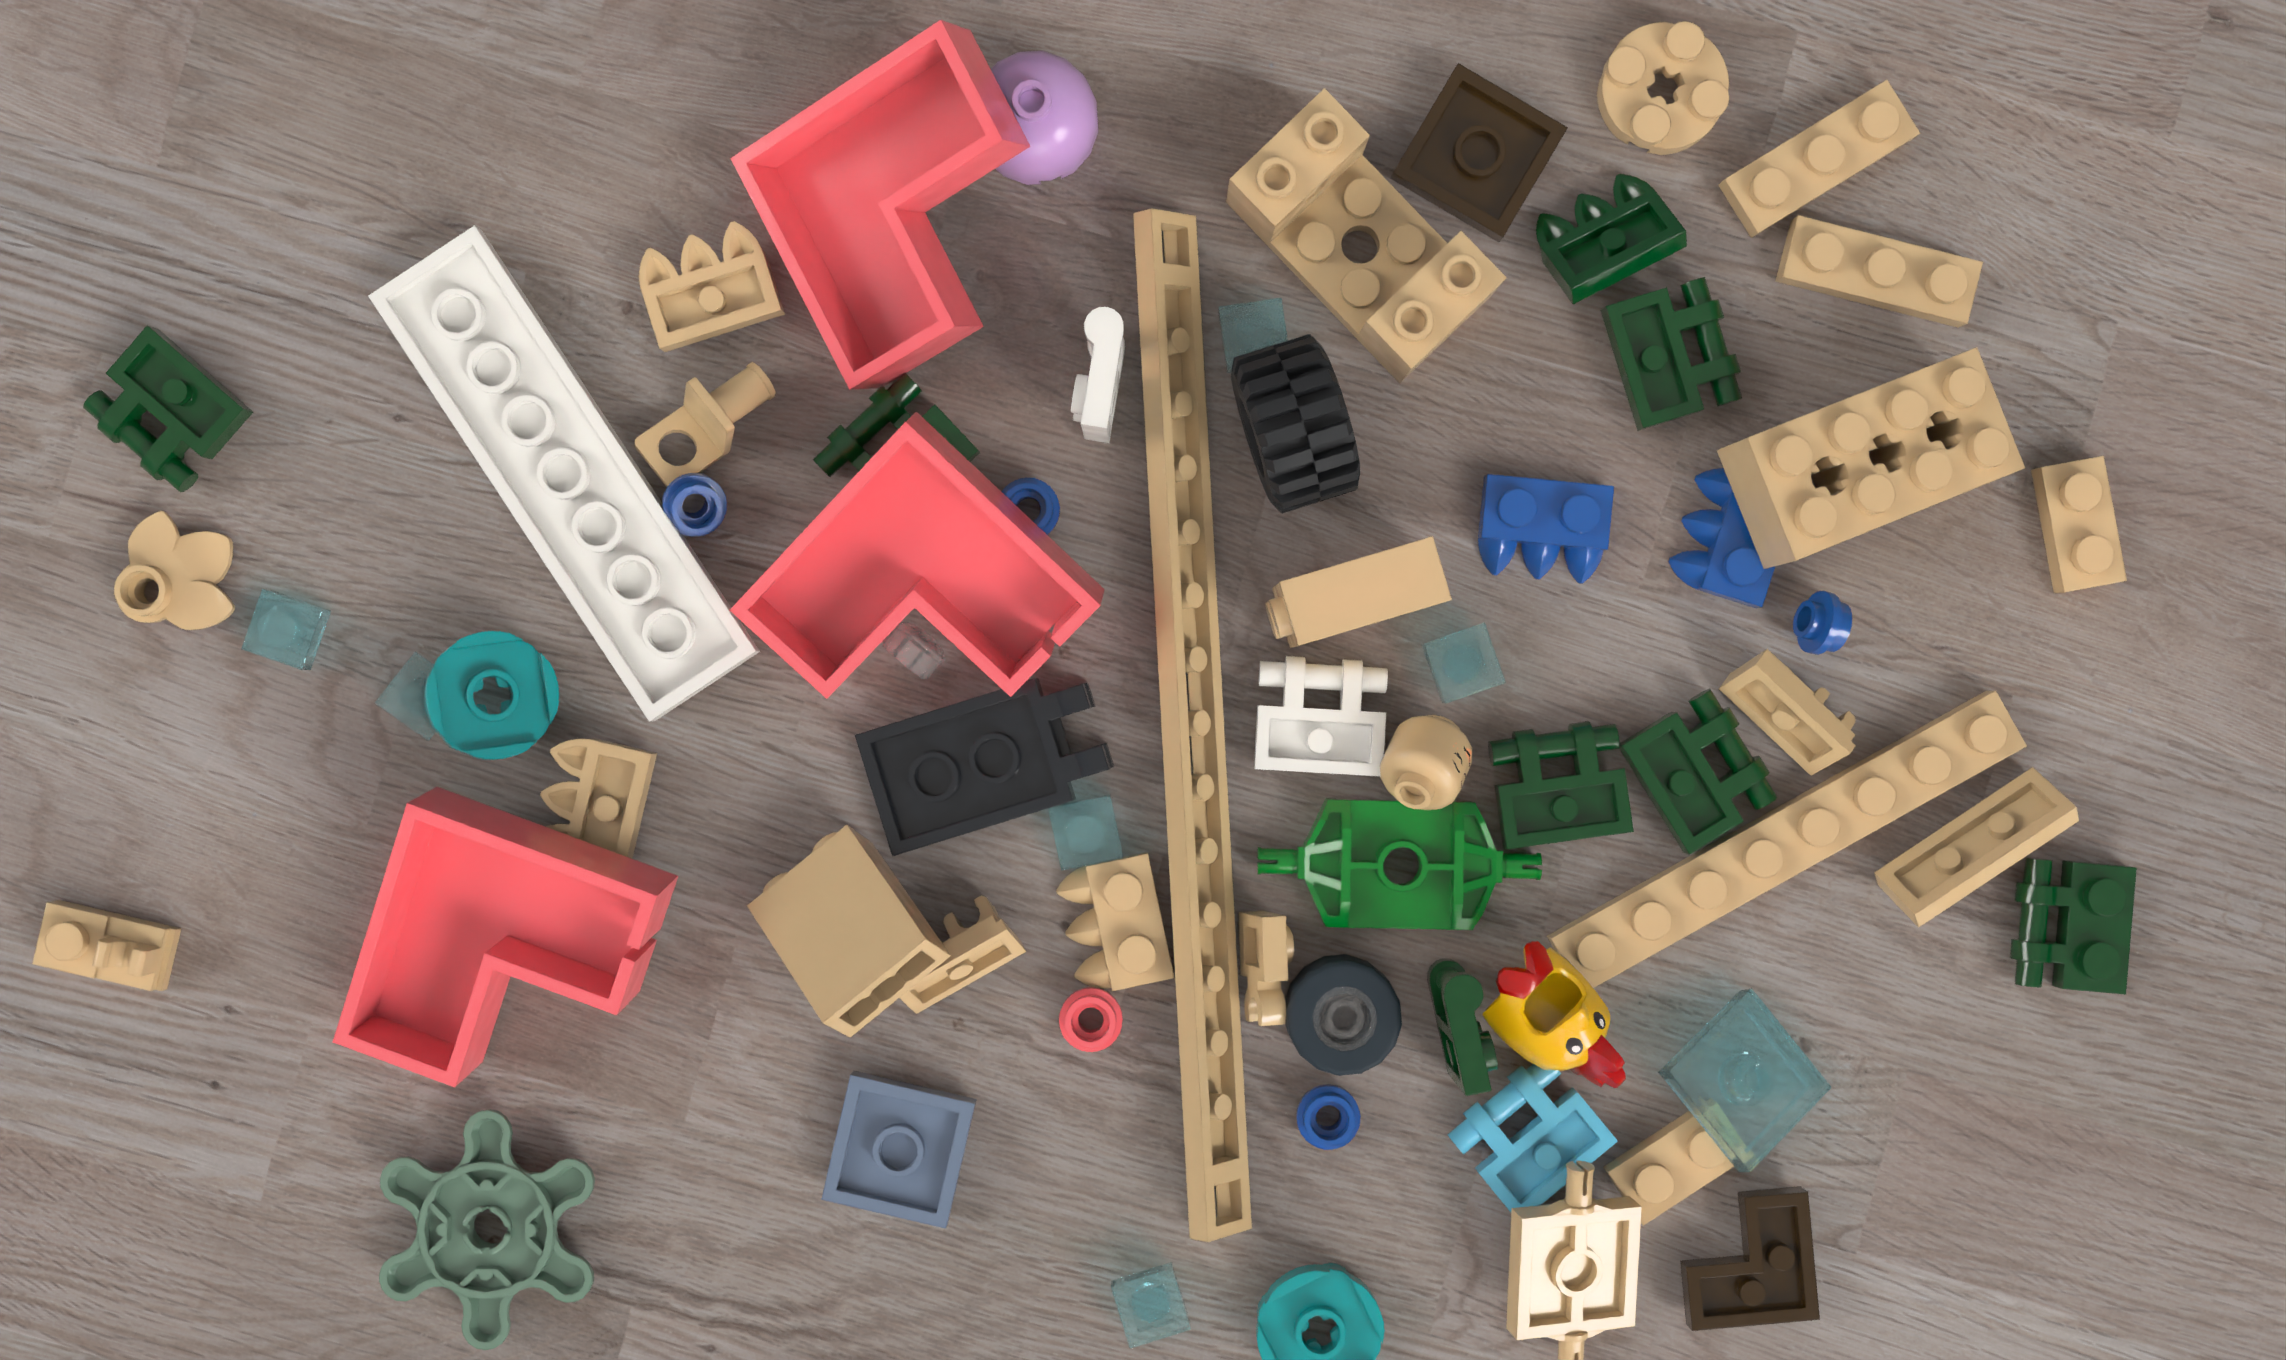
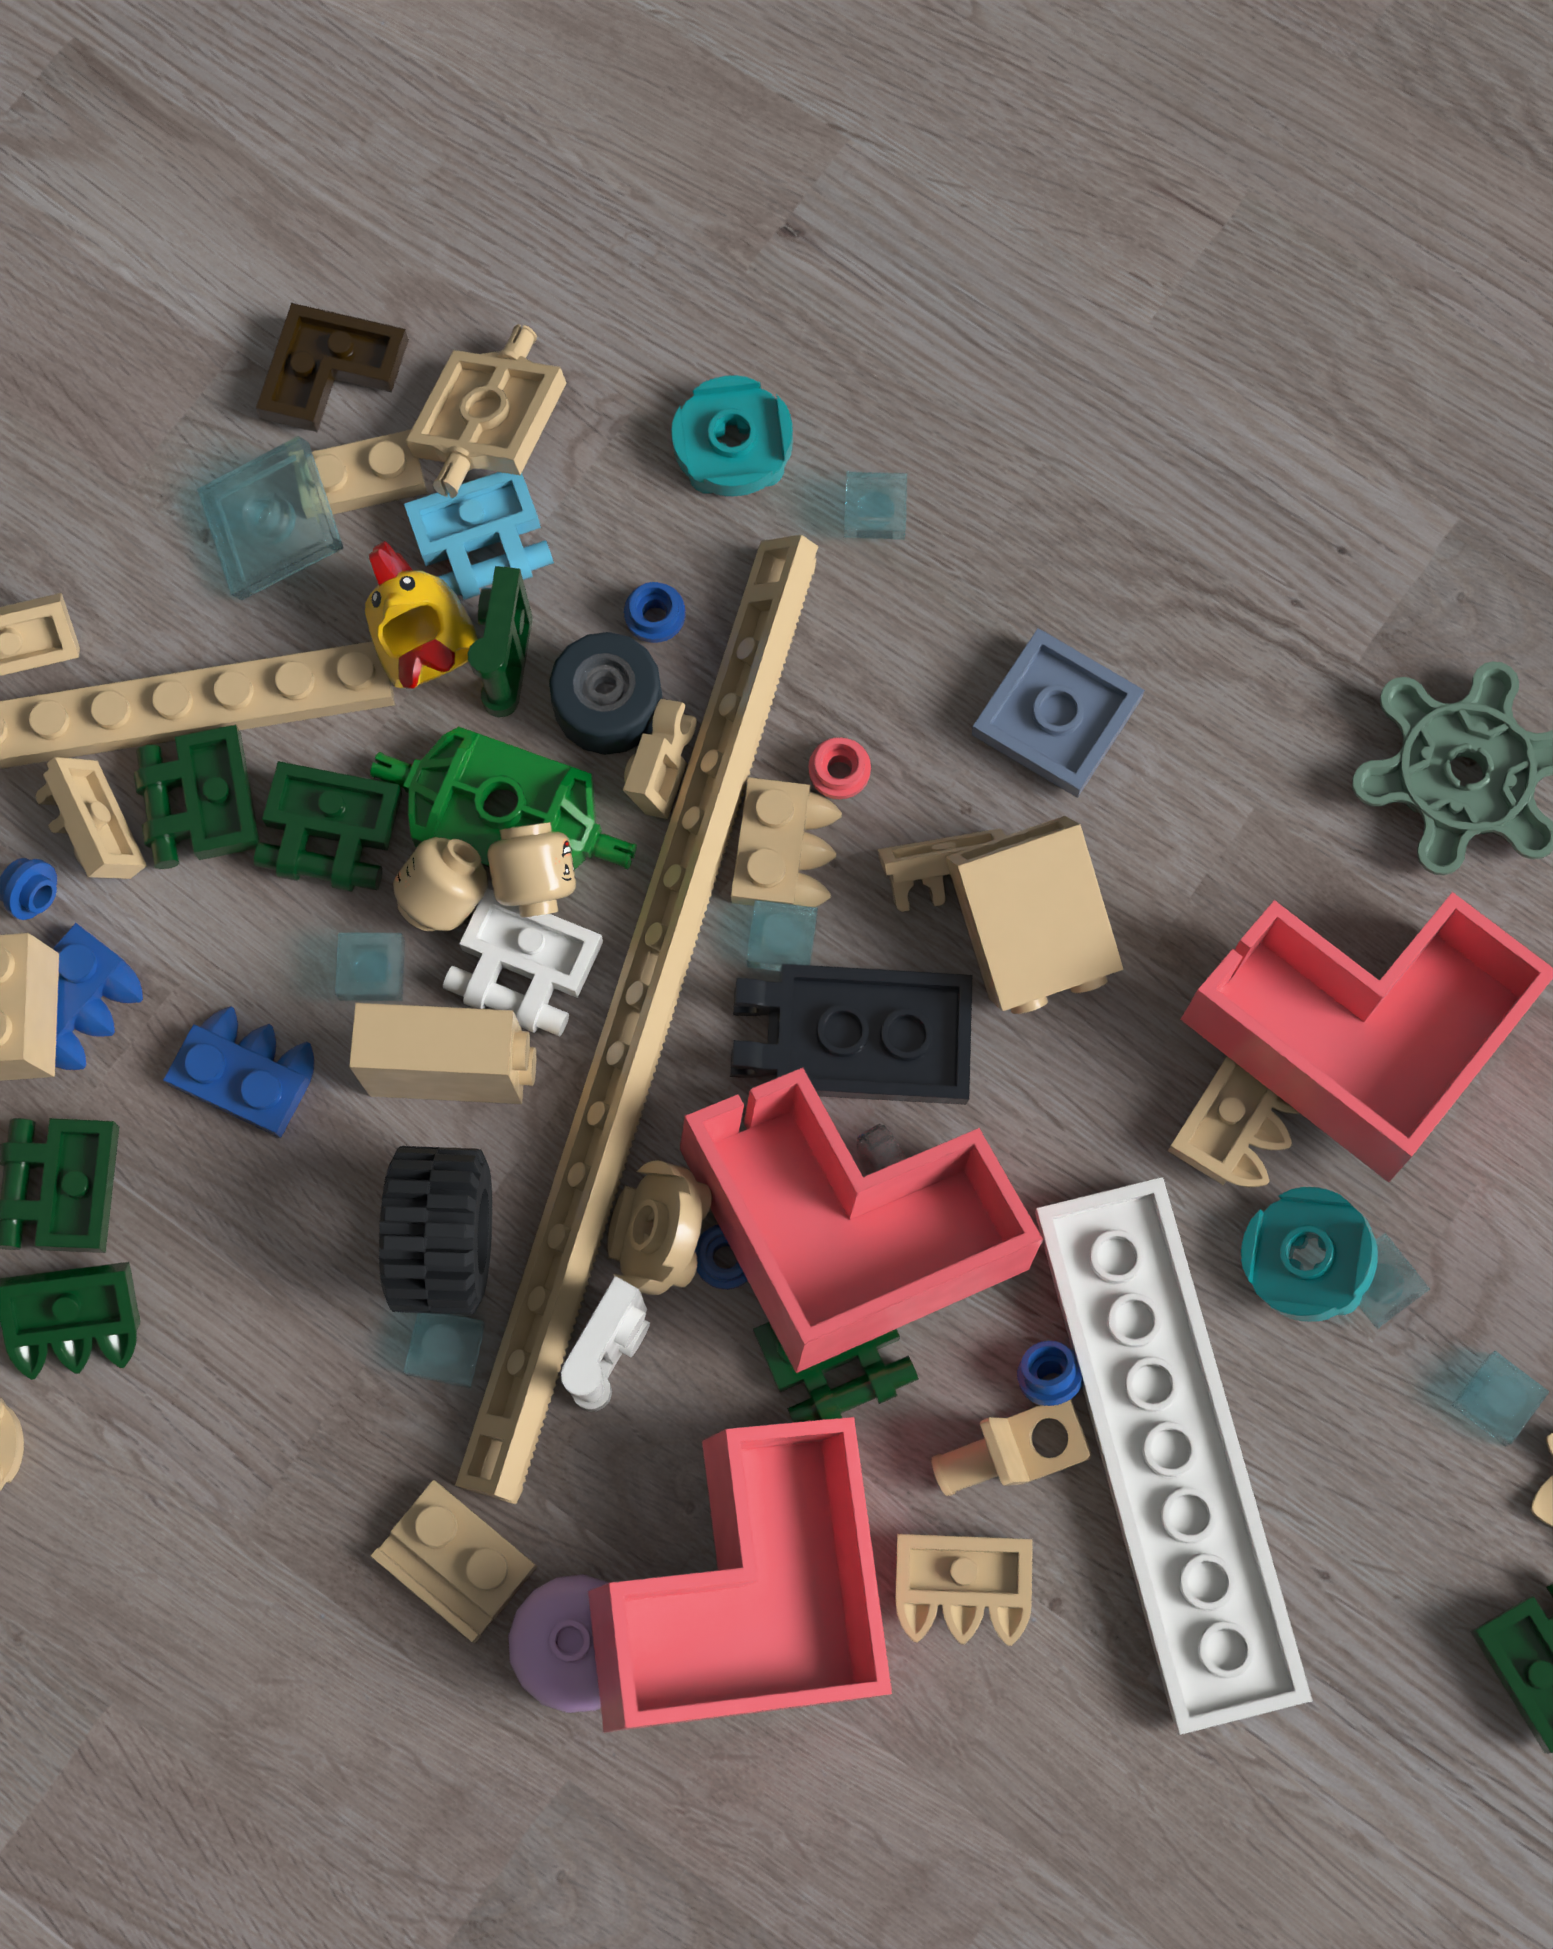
camera: 155 degrees left, 15 degrees down
(1074, 482) = (658, 1228): none -> tan plate
(1171, 151) = (454, 1561): none -> tan plate
(1317, 188) = (288, 1325): tan plate -> none
(1341, 803) = (531, 868): none -> tan head
(1478, 152) = (156, 1445): dark brown plate -> none

